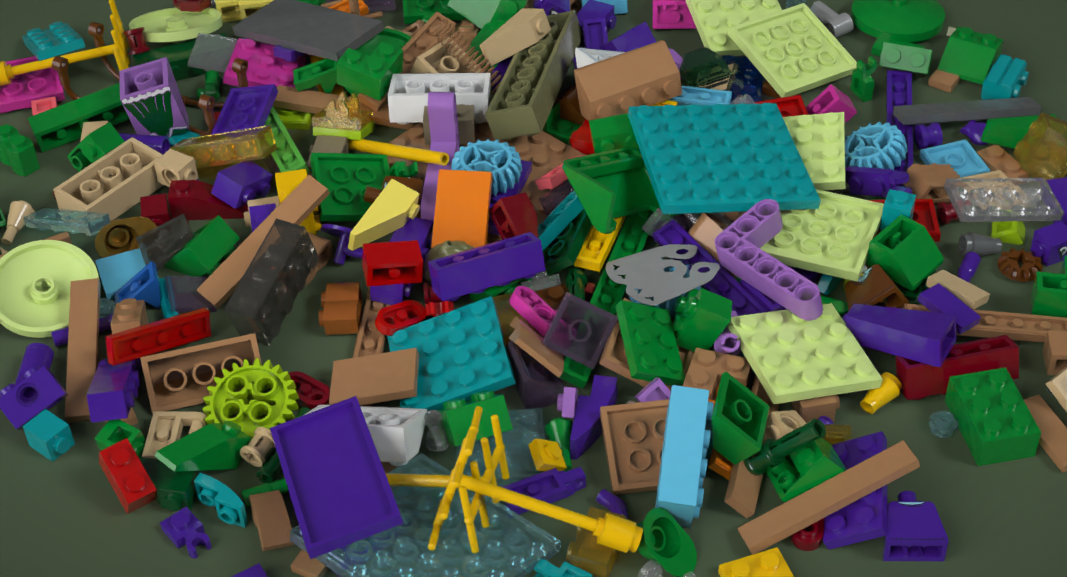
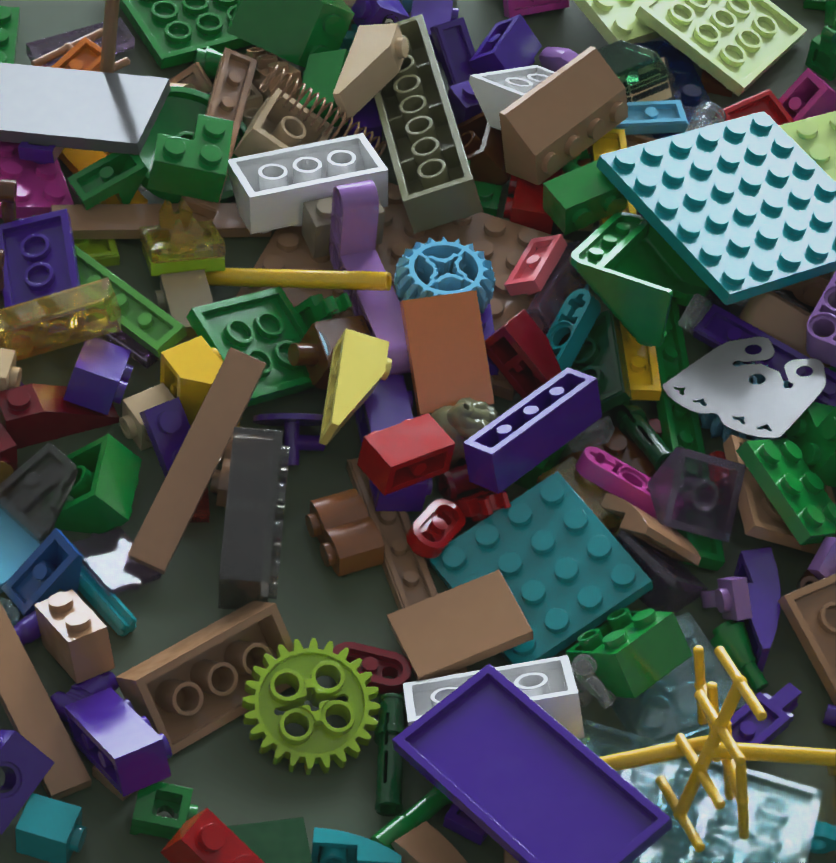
camera: 30 degrees left, 5 degrees up
(158, 336) = (128, 640): red tile -> none
(167, 428) = (216, 787): tan plate -> none
(208, 448) = (307, 790): green slope -> none
(258, 447) = (366, 767): tan bush -> none
(546, 455) = (747, 670): yellow plate -> none

